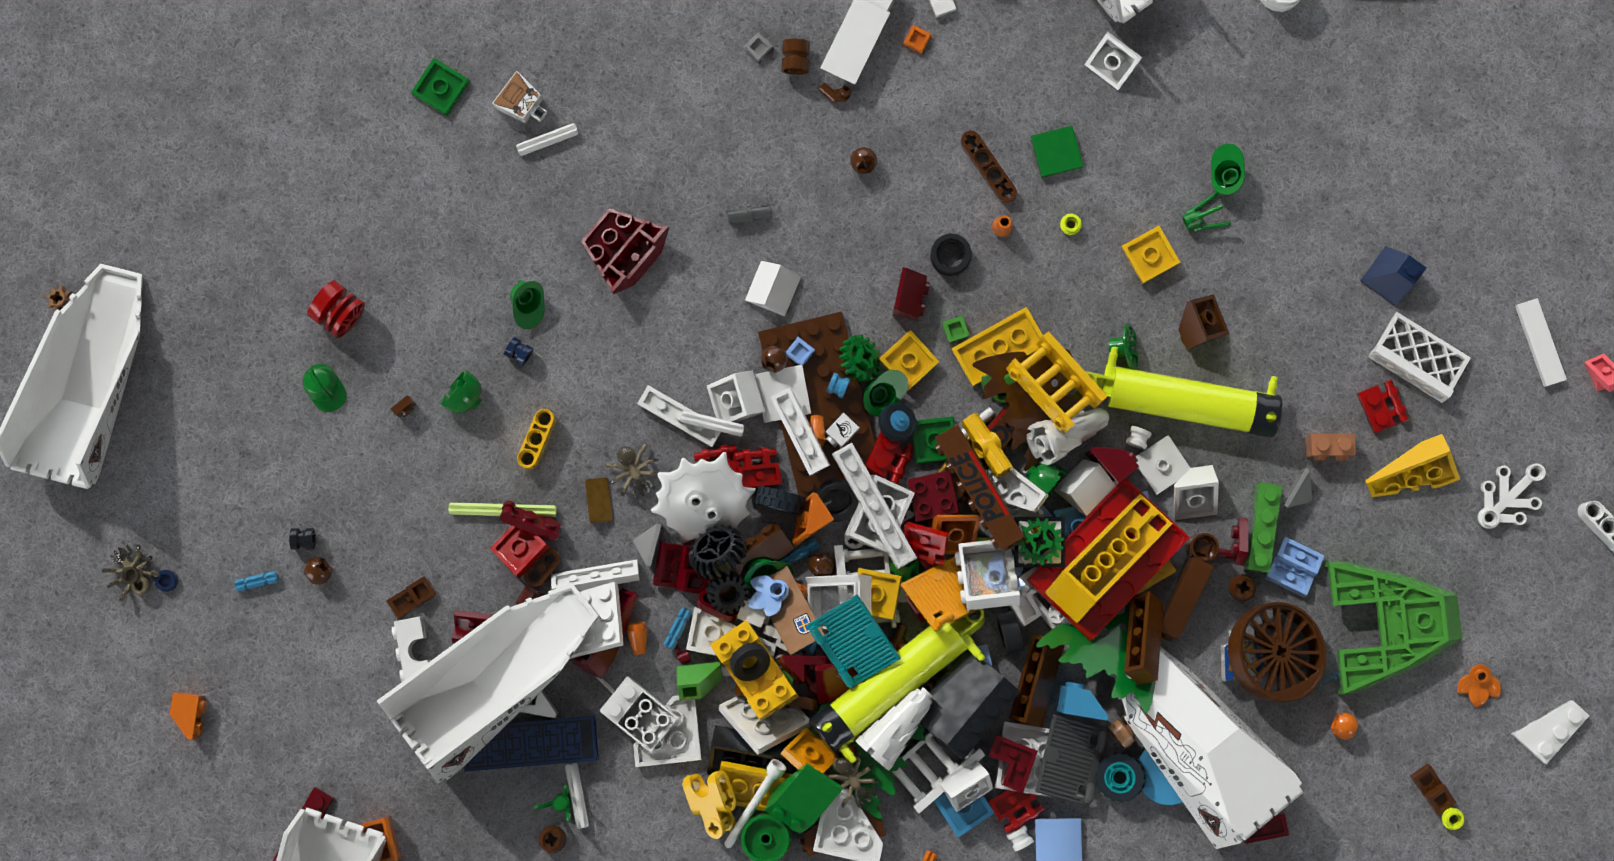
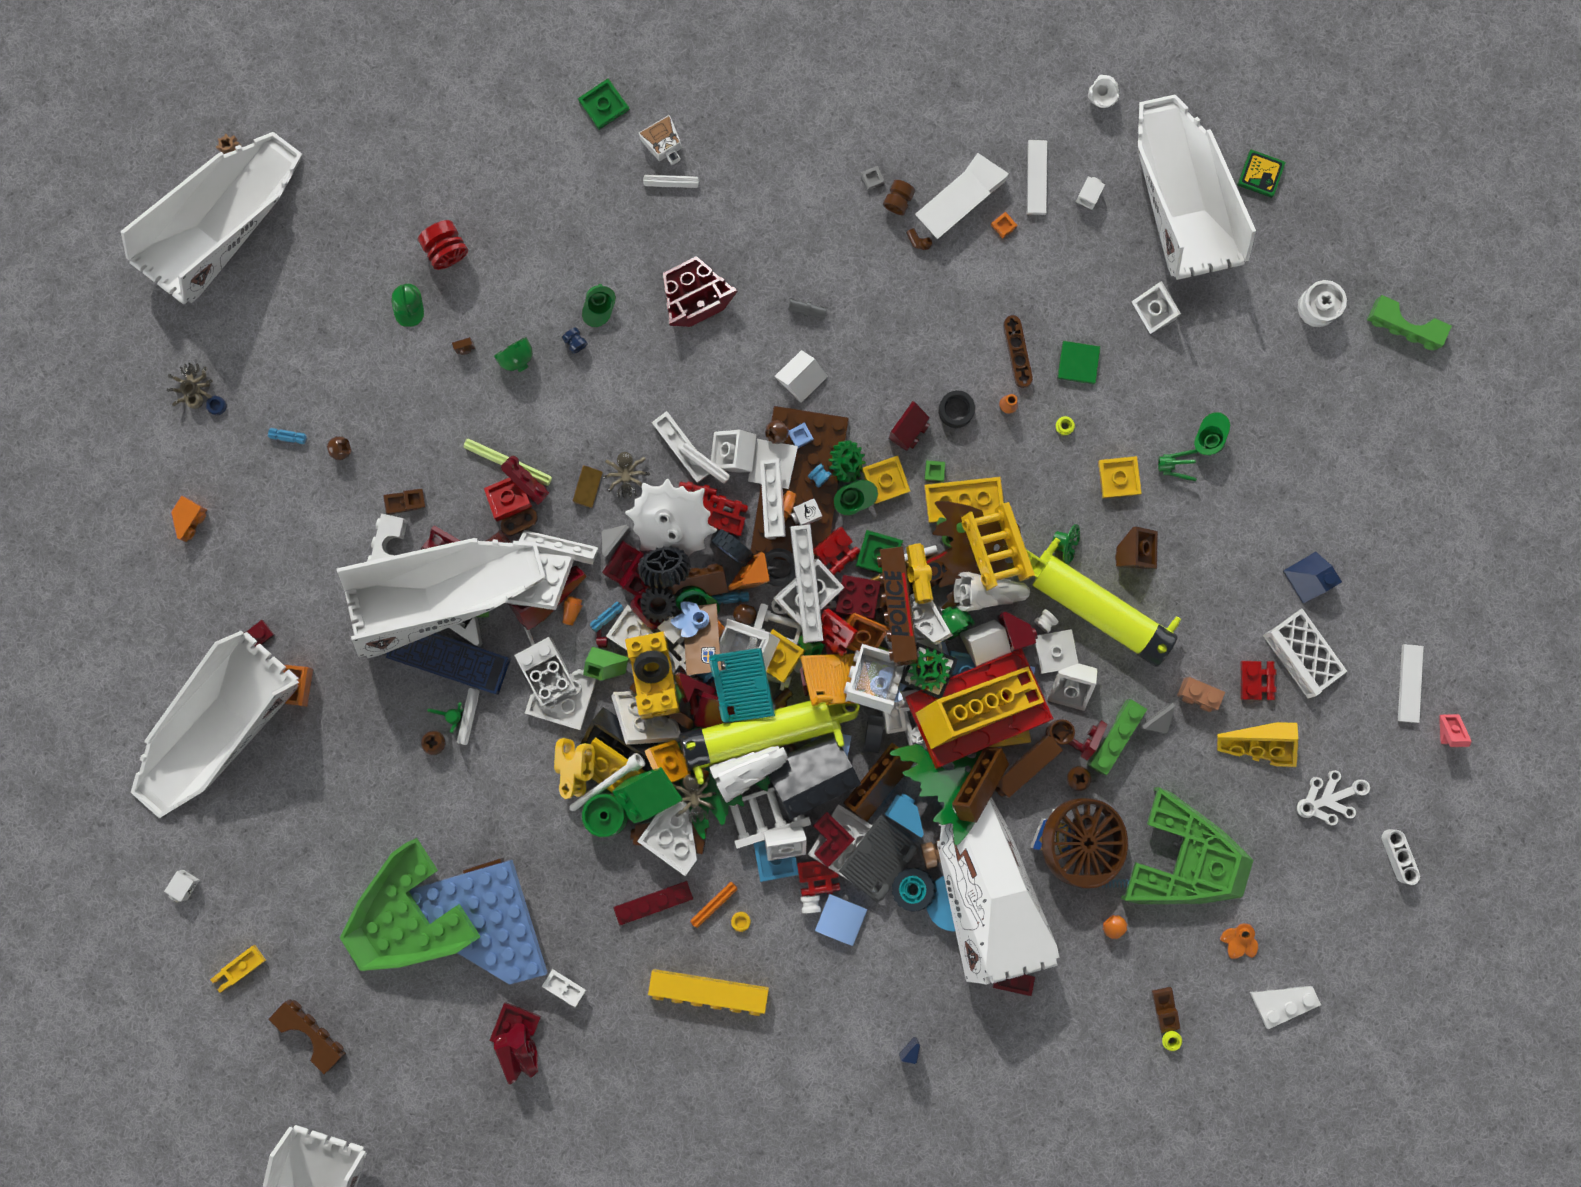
camera: 20 degrees right, 0 degrees up
(306, 539) = (338, 417): black wheel -> none
(536, 428) = (561, 407): yellow beam -> none
(863, 160) = (918, 309): reddish brown piece -> none
(897, 422) = (855, 525): black wheel -> none
(1294, 567) = (1129, 780): light blue slope -> none

